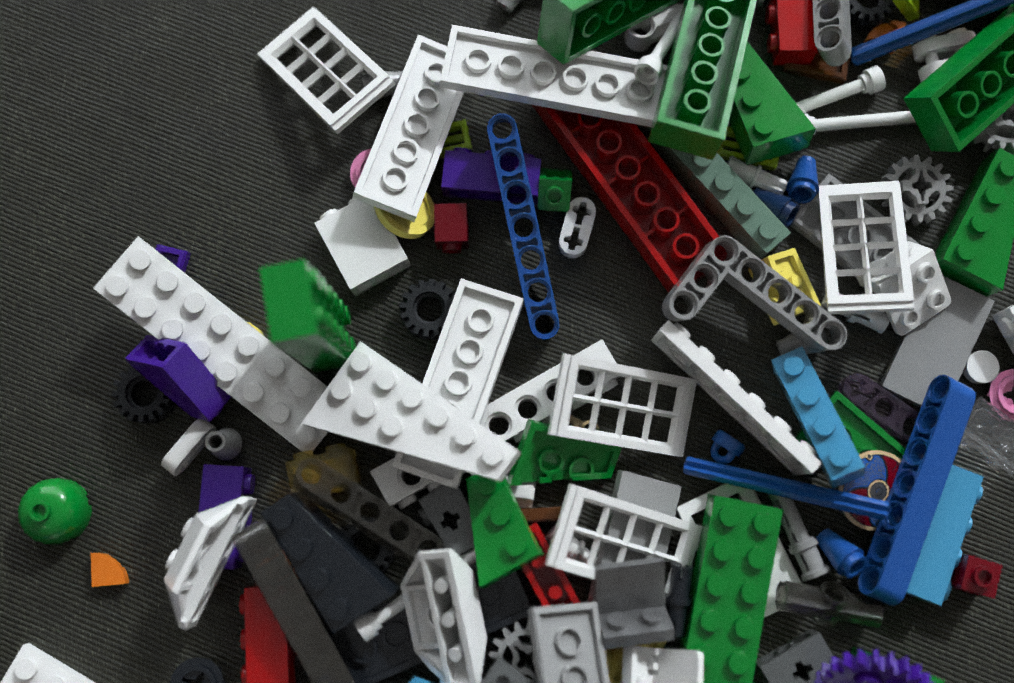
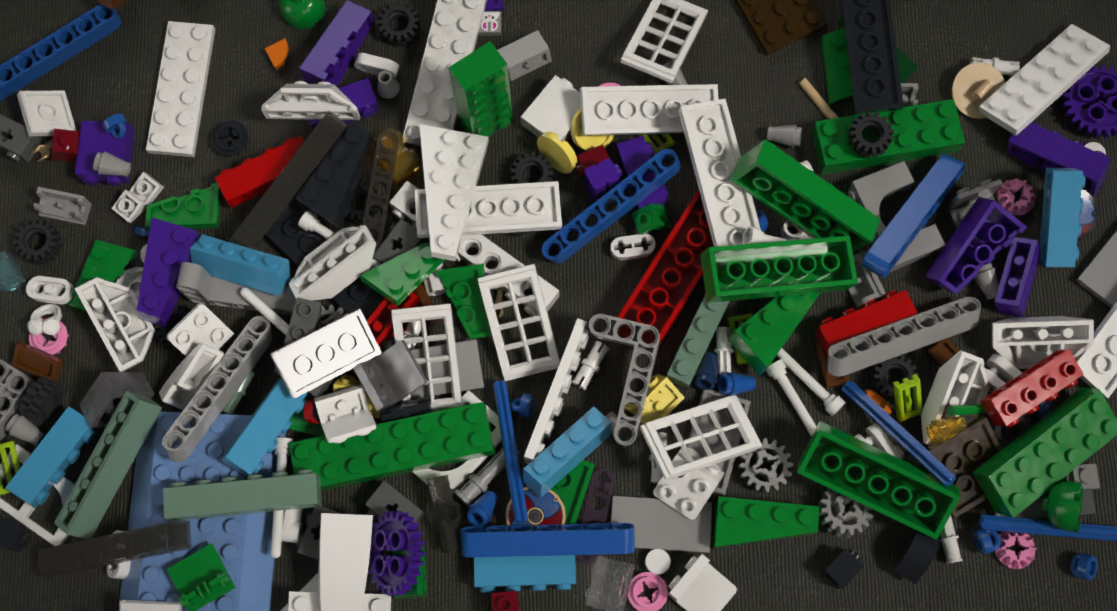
camera: 65 degrees right, 5 degrees down
(138, 487) = (337, 45): none -> dark purple wedge
(179, 375) = (416, 38): dark purple slope -> none
(203, 273) = (490, 24): none -> tile
(264, 245) = (525, 55): none -> light grey hinge
(423, 263) = (559, 153): none -> light yellow tile
(482, 224) = (601, 179): none -> dark purple brick
(703, 337) = (590, 365): none -> white pin

